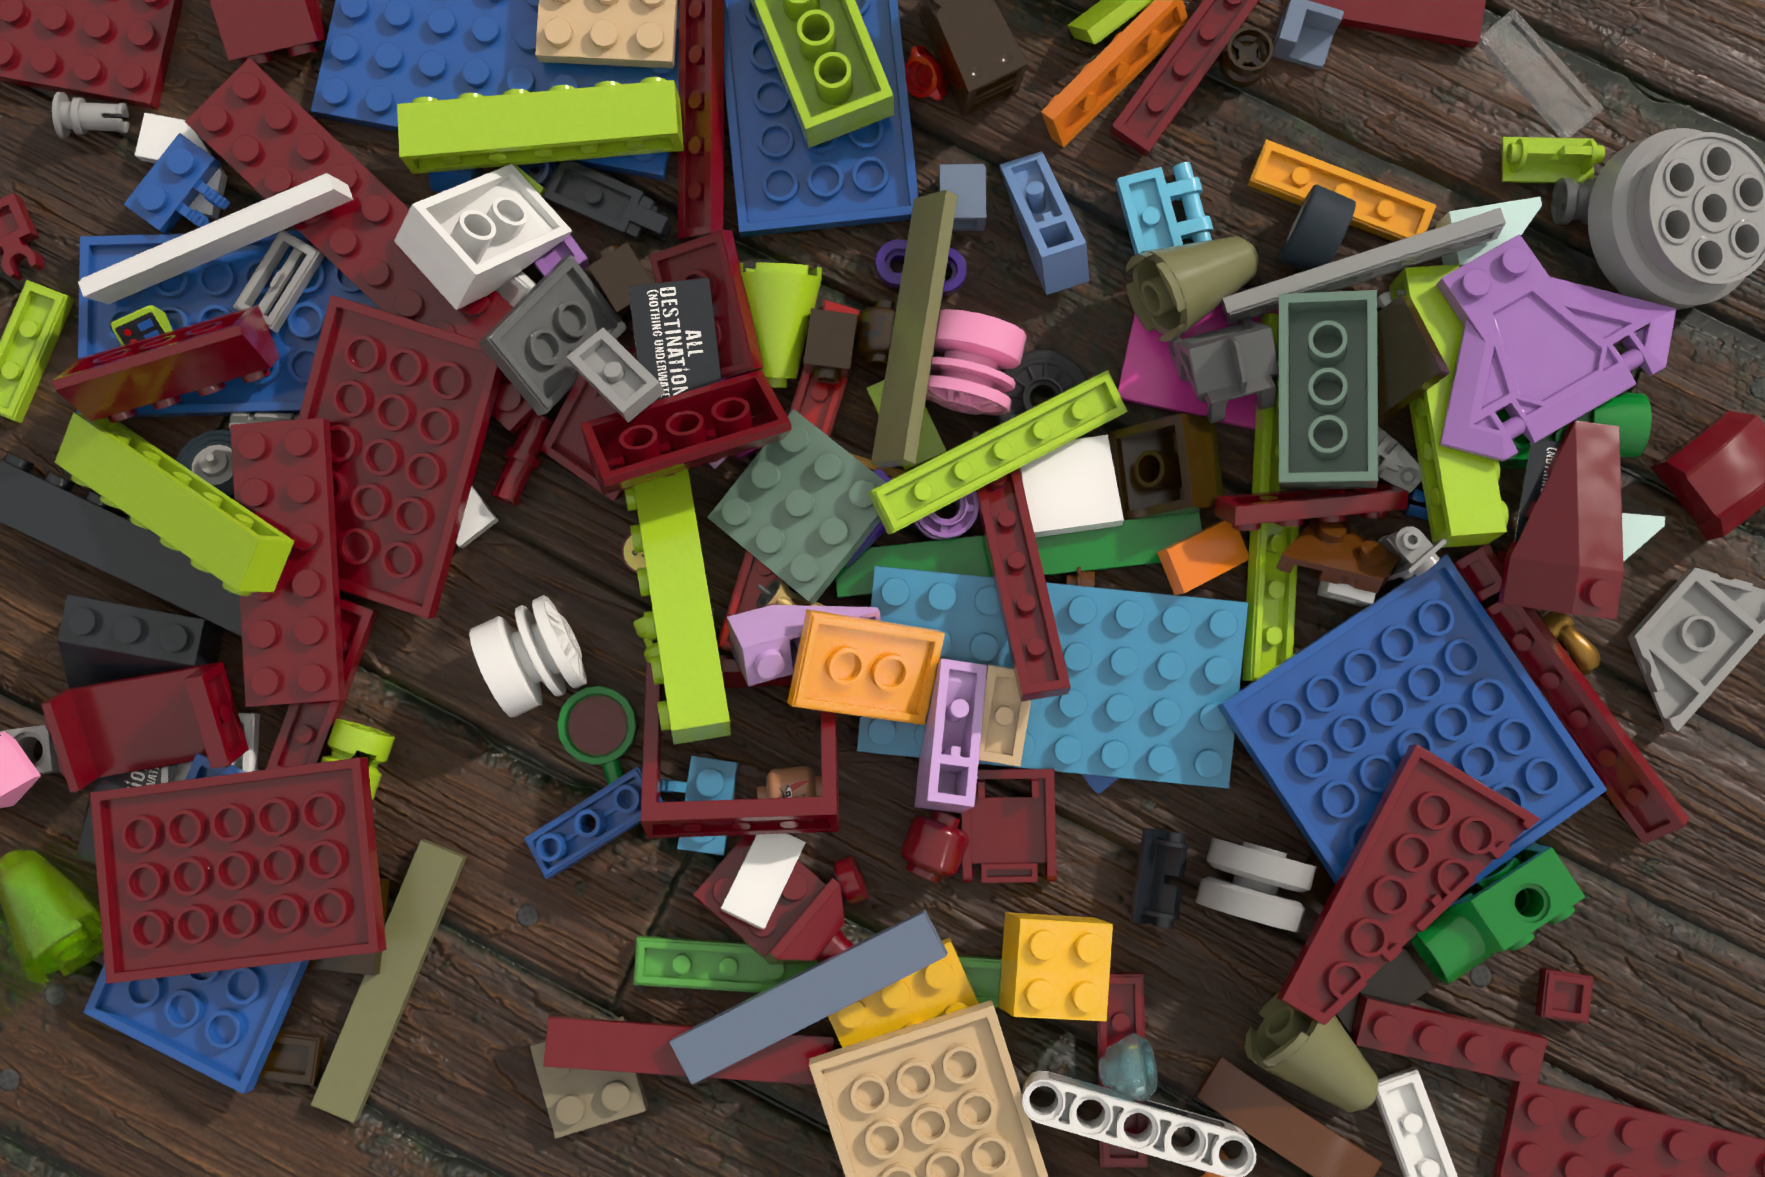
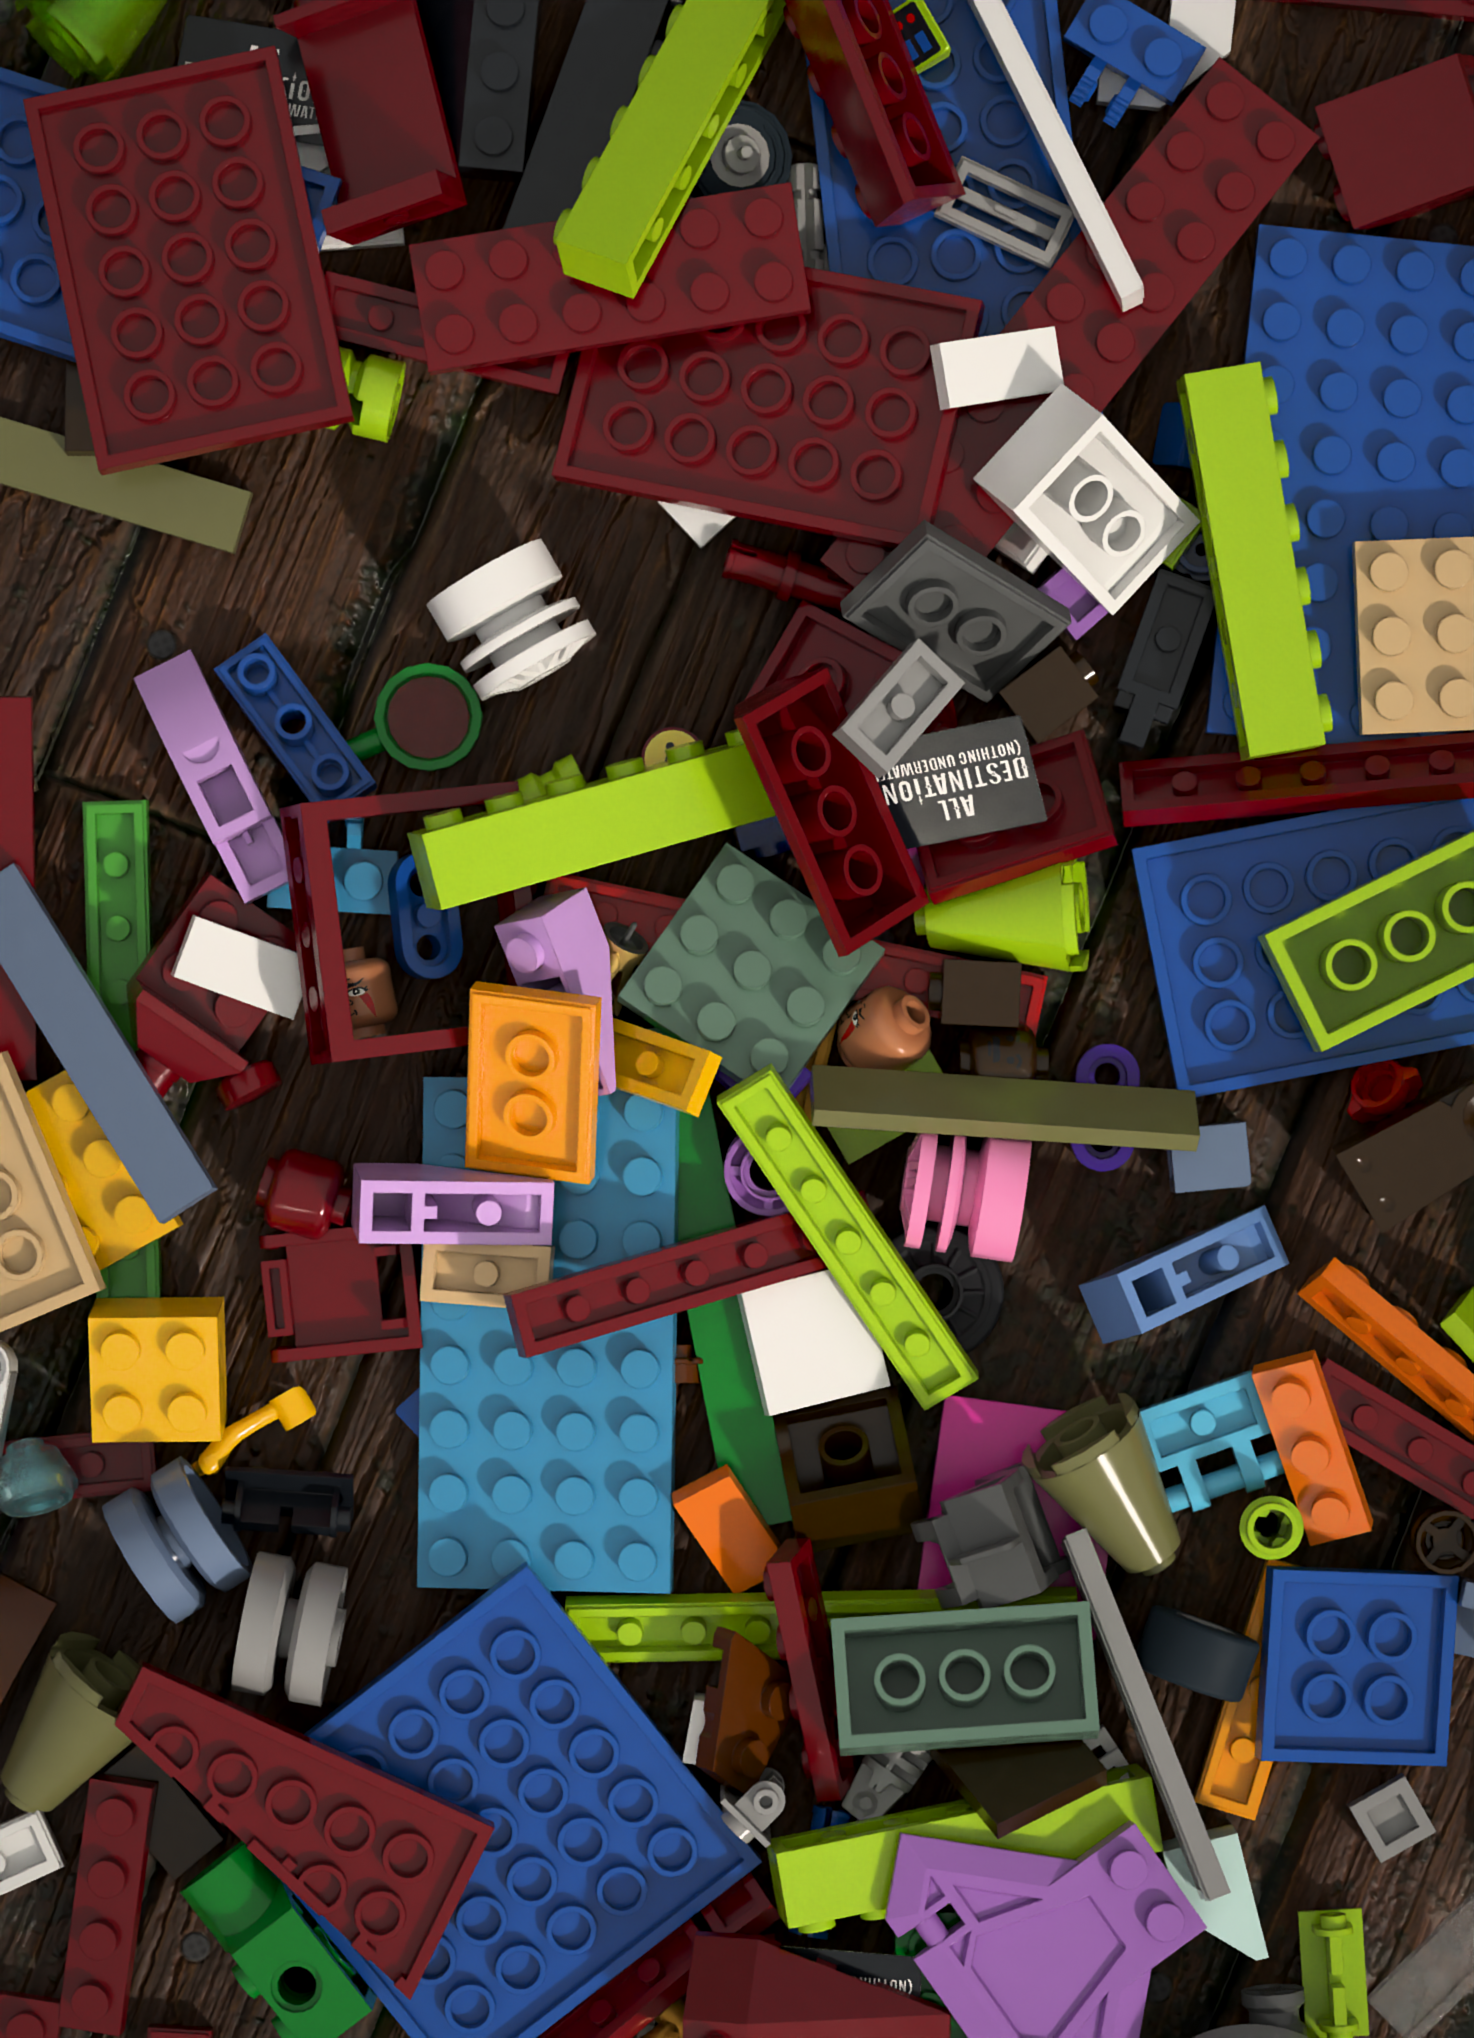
camera: 75 degrees right, 5 degrees up
(378, 287) = (996, 367): none -> white tile
(622, 883) = (215, 775): none -> lavender slope
(704, 488) = (764, 836): none -> clear blue plate
(741, 744) = (413, 920): none -> blue plate
(851, 414) = (883, 1030): none -> nougat head
(864, 571) = (662, 1068): none -> yellow plate
(1090, 871) = (290, 1408): none -> yellow piece
(1174, 139) = (1312, 1447): none -> orange plate
(1184, 963) = (177, 1540): none -> sand blue wheel
(1230, 171) = (1282, 1539): none -> lime cone
(1333, 122) = (1356, 1666): none -> blue plate
(1440, 109) = (1391, 1818): none -> light grey plate

